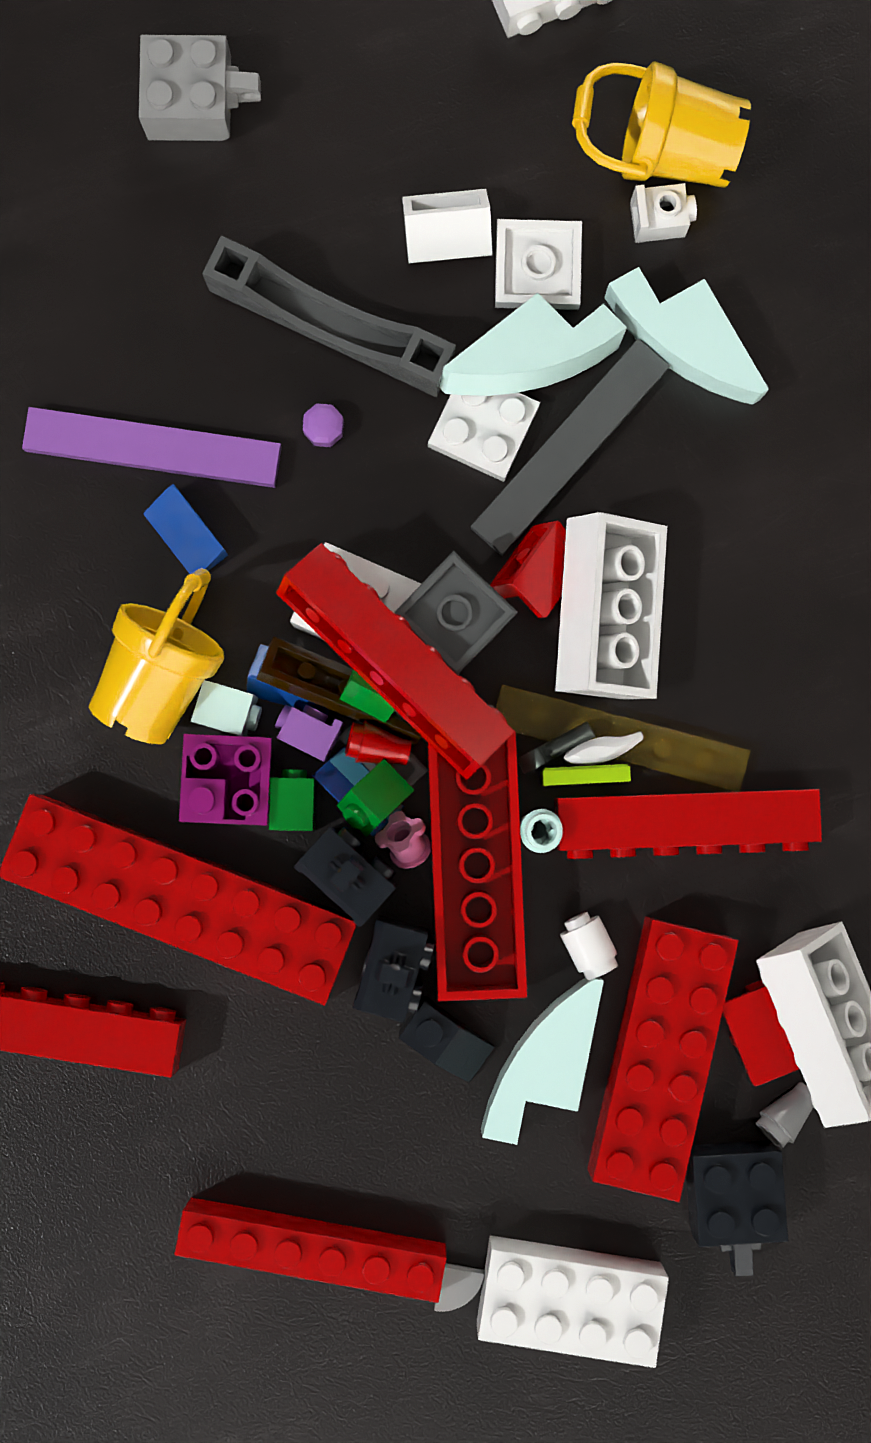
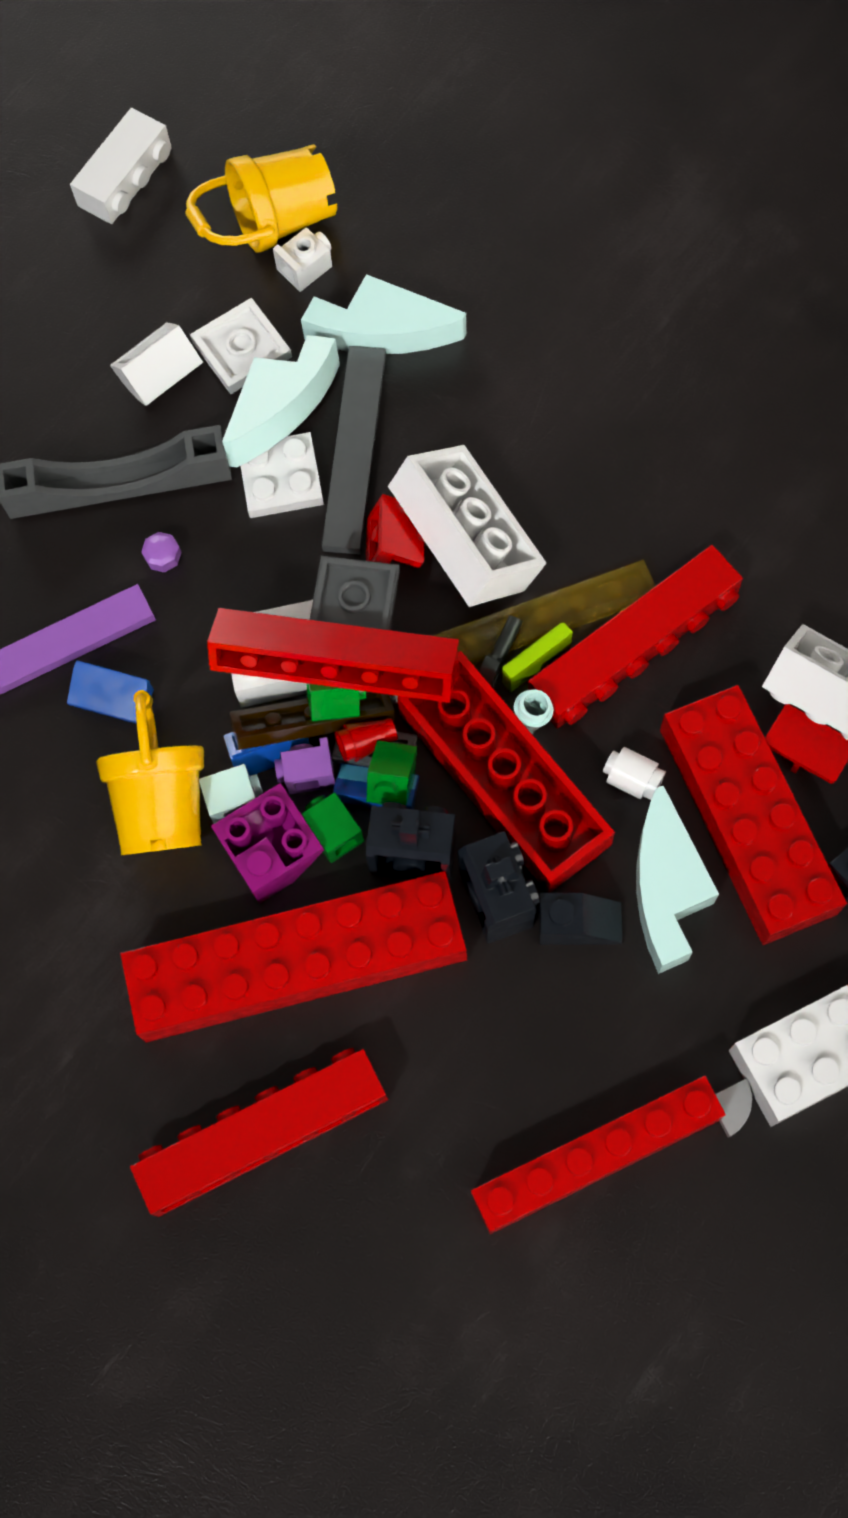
camera: 25 degrees left, 15 degrees down
(405, 840) = (436, 791): bright pink brick -> none
(601, 750) = (534, 628): white bar -> none

